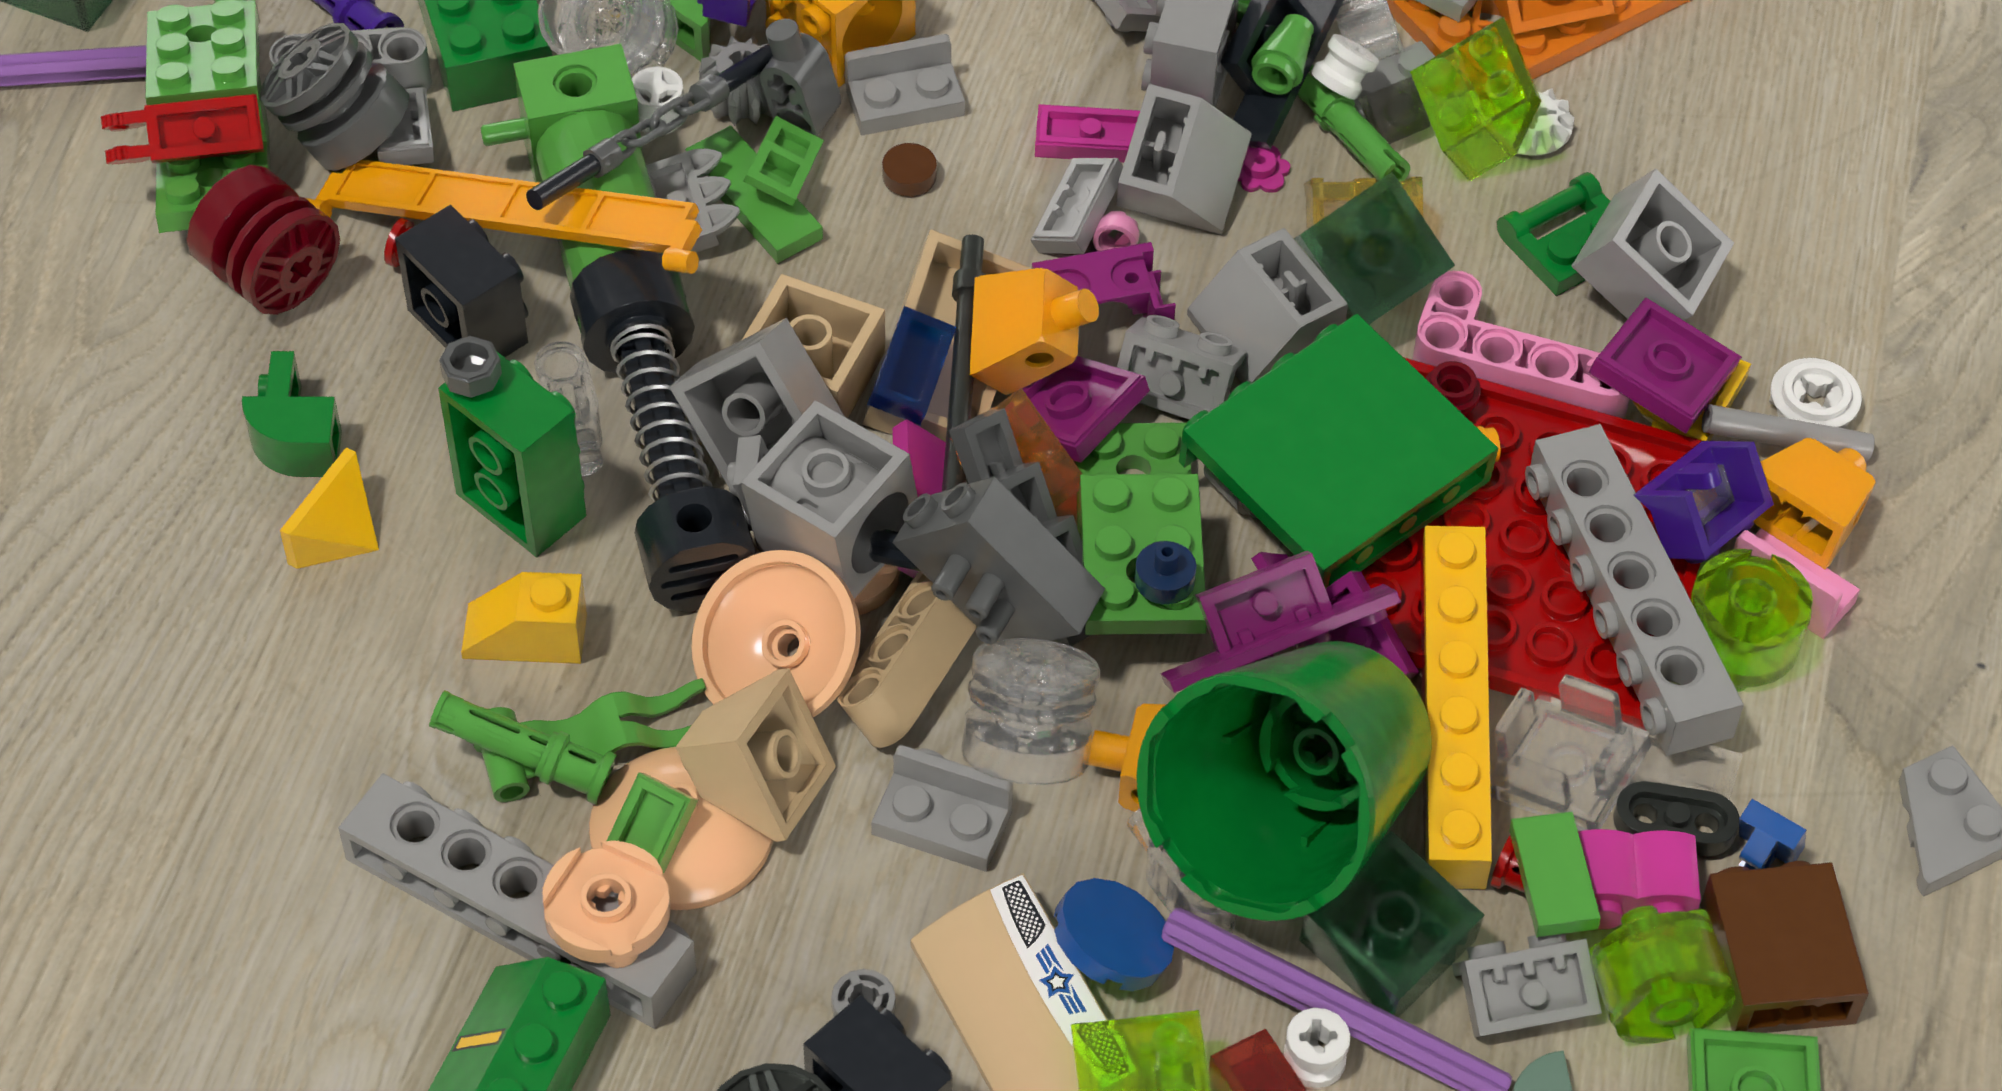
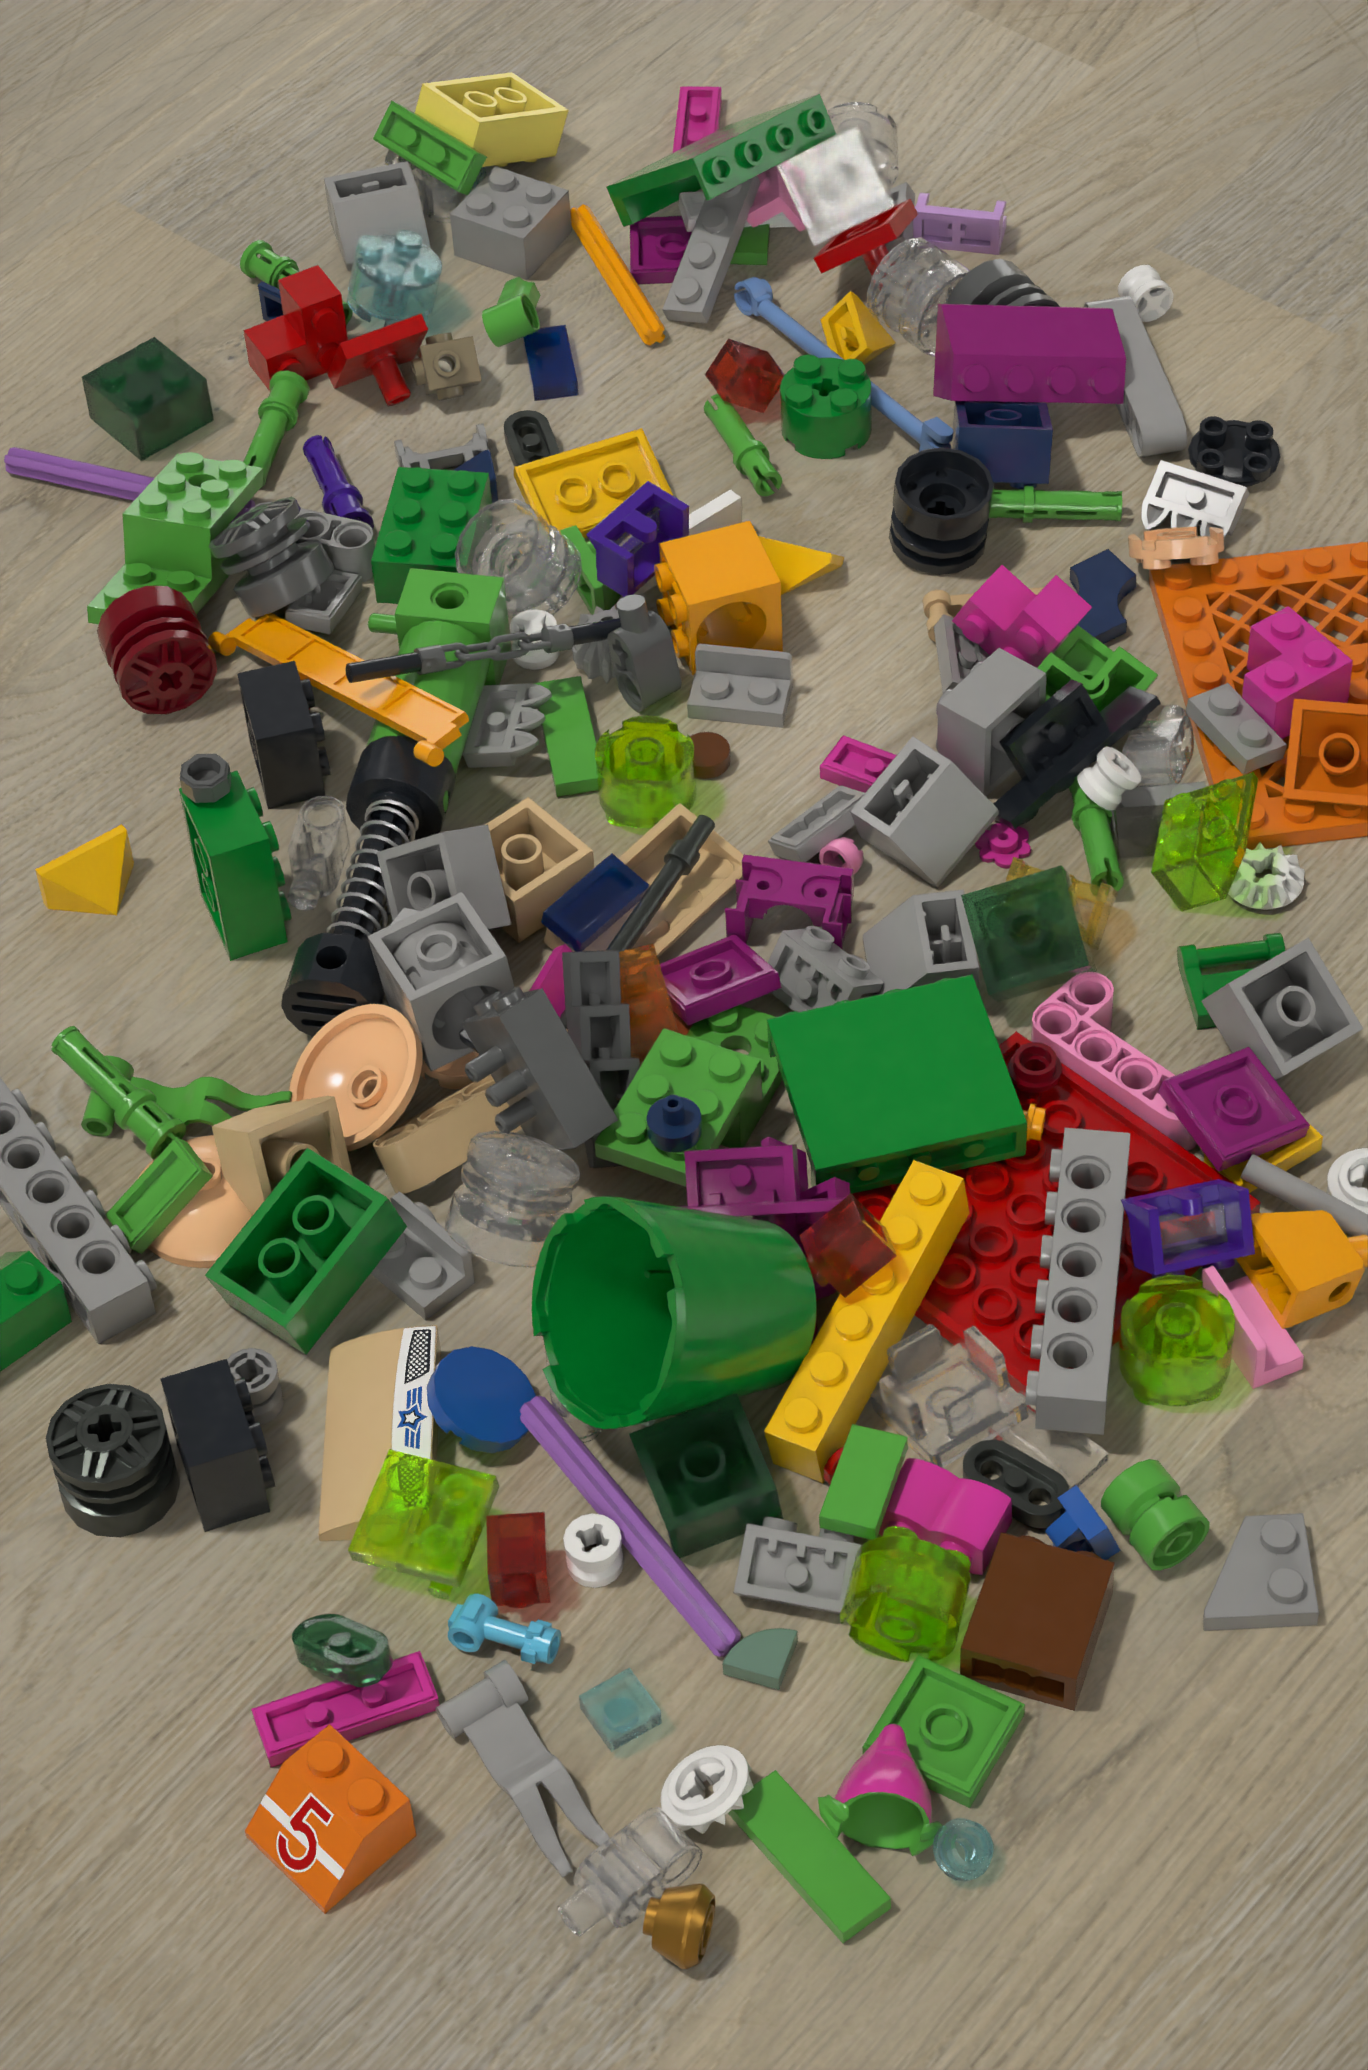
camera: 30 degrees right, 5 degrees down
(189, 130) = (145, 549): red hinge -> none
(291, 430) = (102, 793): green brick -> none
(528, 620) = (189, 1004): yellow slope -> none
(613, 935) = (101, 1250): light nougat plate -> none
(783, 160) = (593, 714): bright green slope -> none
(845, 845) = (306, 1250): none -> green brick
(872, 209) = (644, 771): none -> clear neon green brick
(1026, 326) = (698, 902): light orange torso -> none
(1283, 57) = (1055, 752): bright green cone -> none
(1424, 638) = (847, 1246): none -> clear red brick
(1829, 799) = (1149, 1509): none -> bright green wheel

